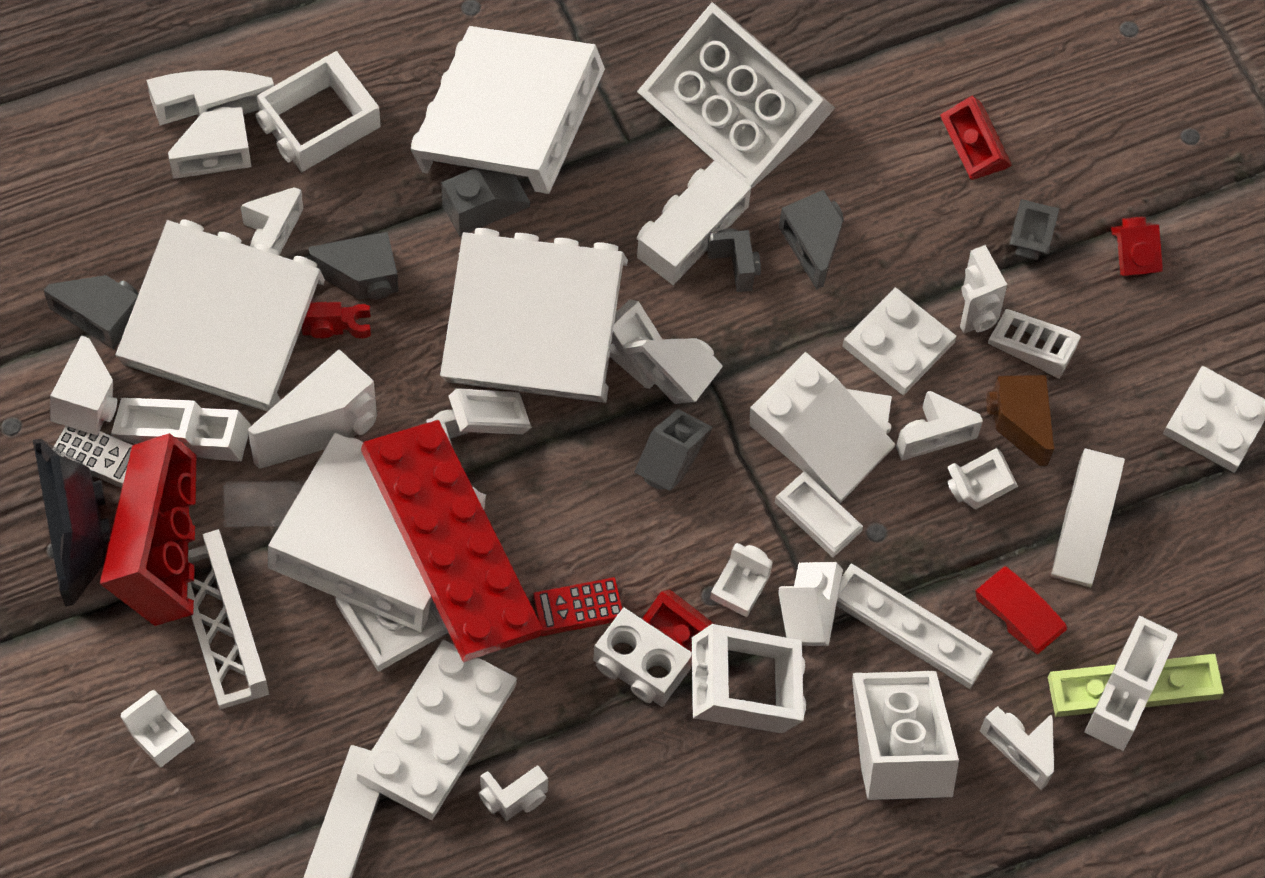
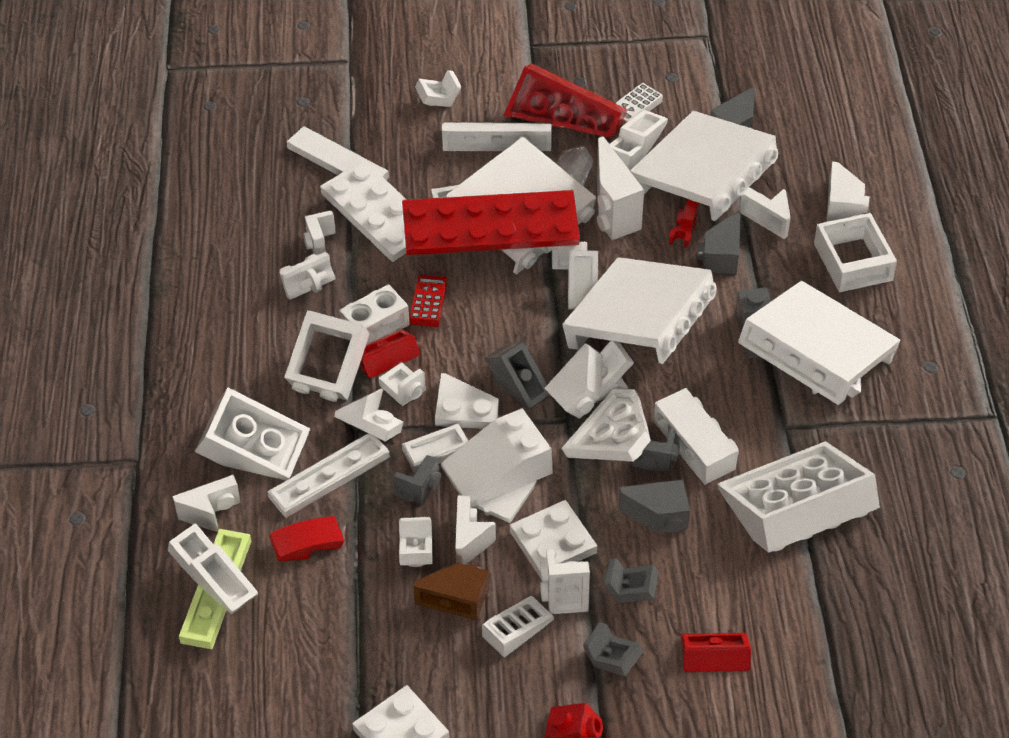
camera: 115 degrees right, 15 degrees down
(72, 519) = (600, 71): black wedge -> none
(83, 391) = (677, 97): white slope -> none
(197, 92) = (884, 195): white slope -> none
(581, 766) = (307, 275): none -> white hips
(734, 302) = (612, 431): none -> white plate
(740, 503) = (464, 405): none -> white wing
(885, 502) = (420, 486): none -> dark grey bracket
(933, 234) = (631, 583): none -> dark grey bracket
(1087, 517) = (358, 602): white slope -> none

